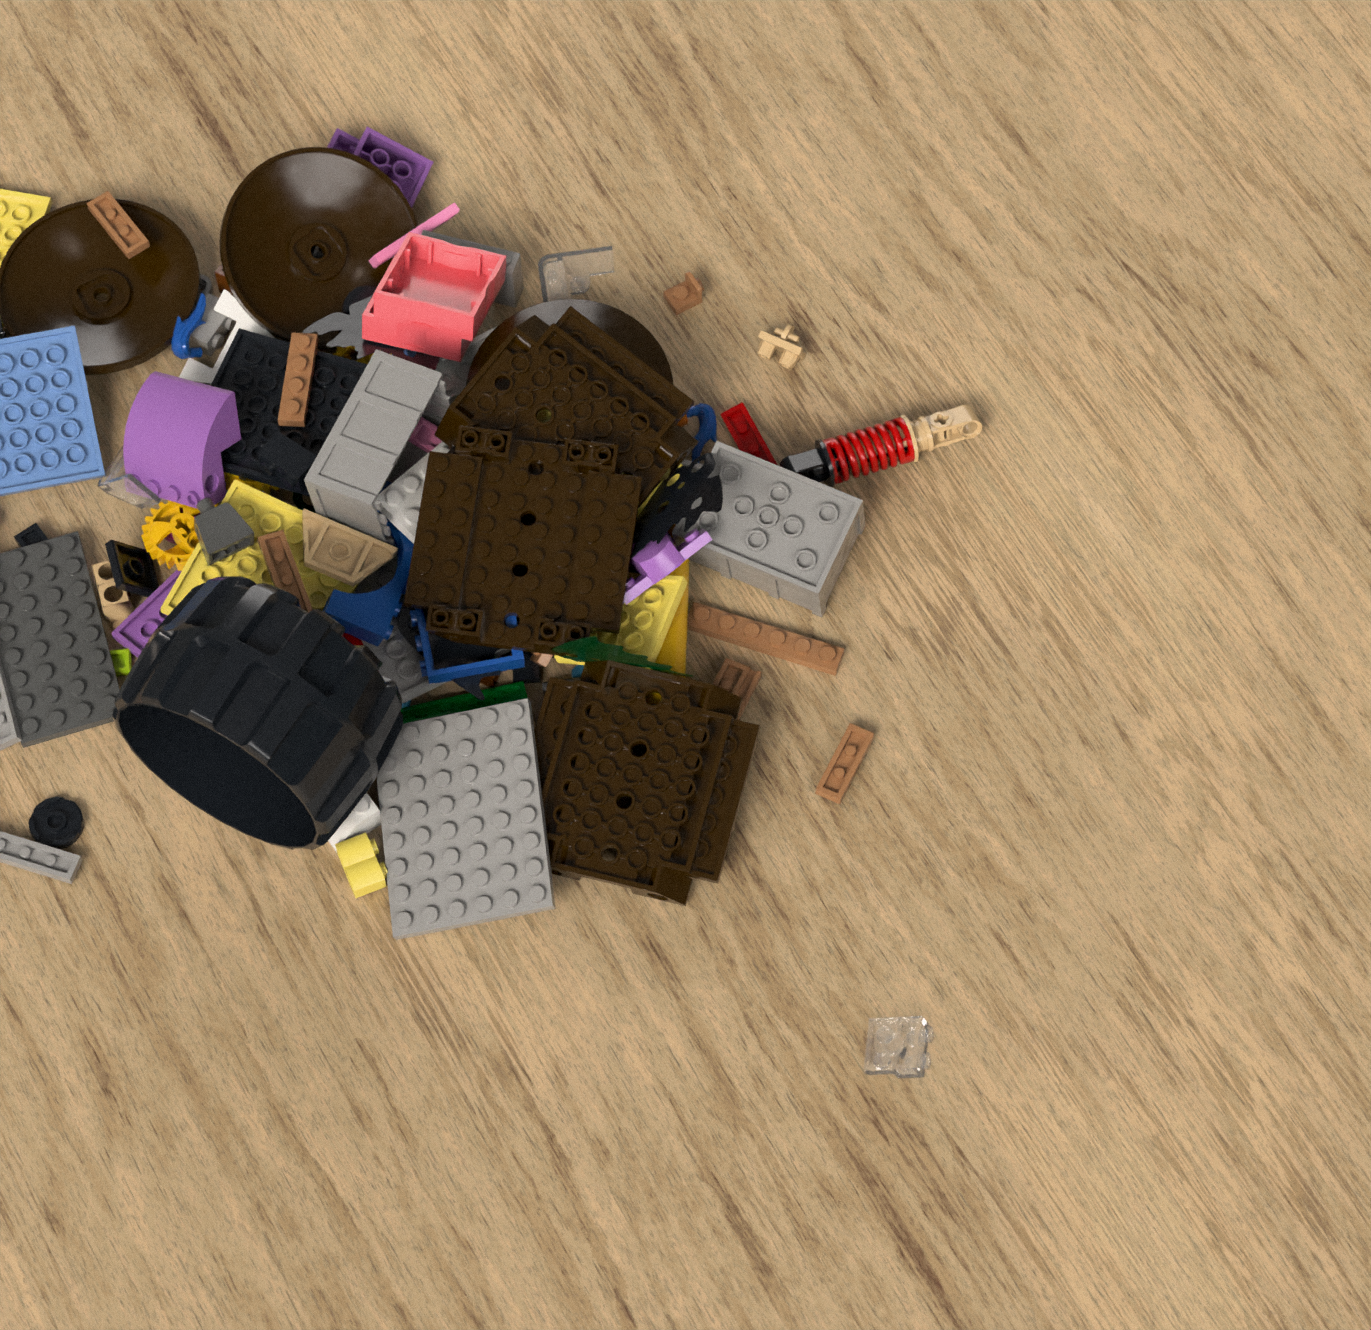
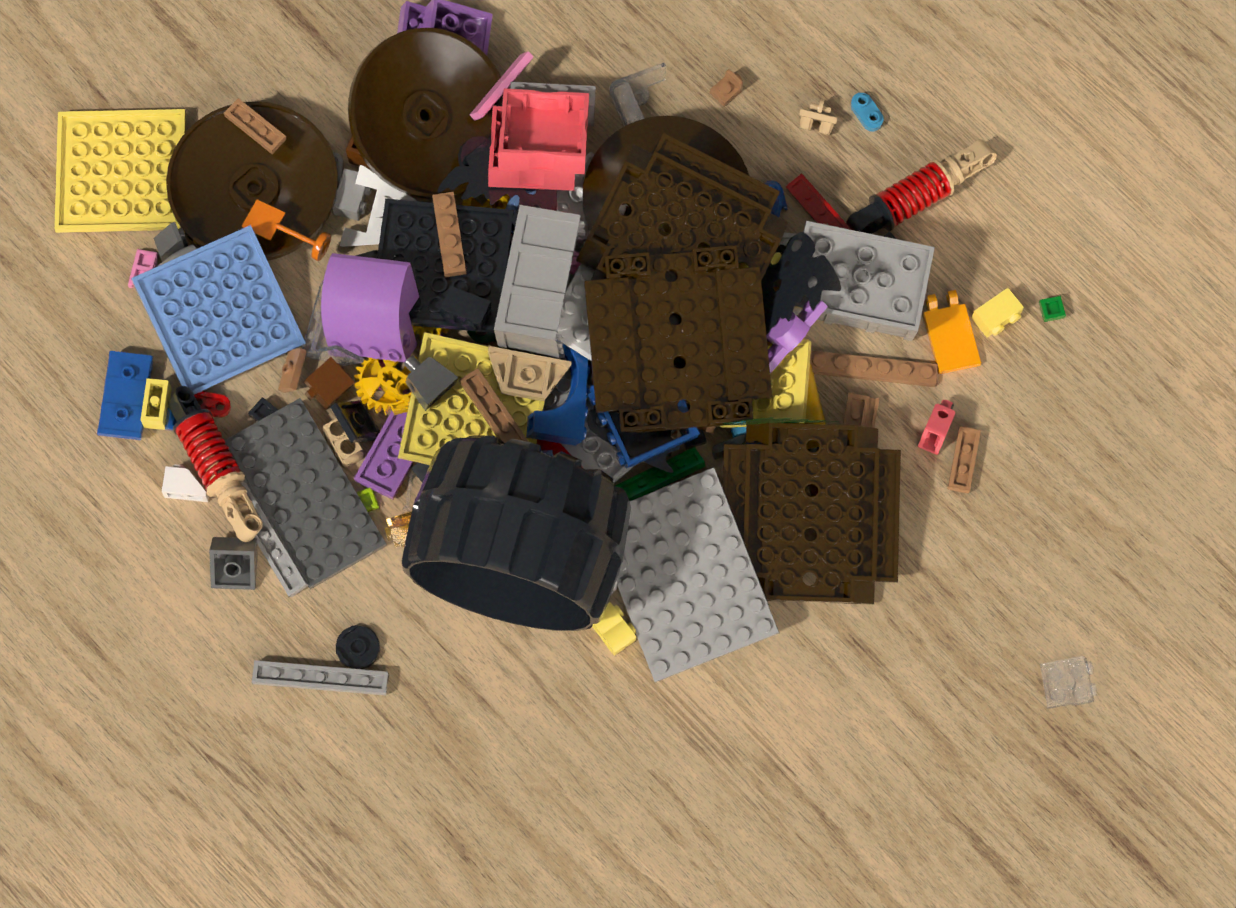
camera: 20 degrees left, 10 degrees up
(79, 500) = (292, 370): none -> medium nougat plate
(99, 327) = (267, 219): none -> orange piece
(113, 519) = (328, 383): none -> reddish brown plate
(184, 329) = (335, 206): blue piece -> none
(820, 718) = (937, 427): none -> coral torso
(843, 350) = (865, 111): none -> dark azure plate
(871, 620) = (950, 334): none -> light orange tile
(934, 605) = (997, 313): none -> light yellow brick
(1003, 614) = (1052, 309): none -> green plate

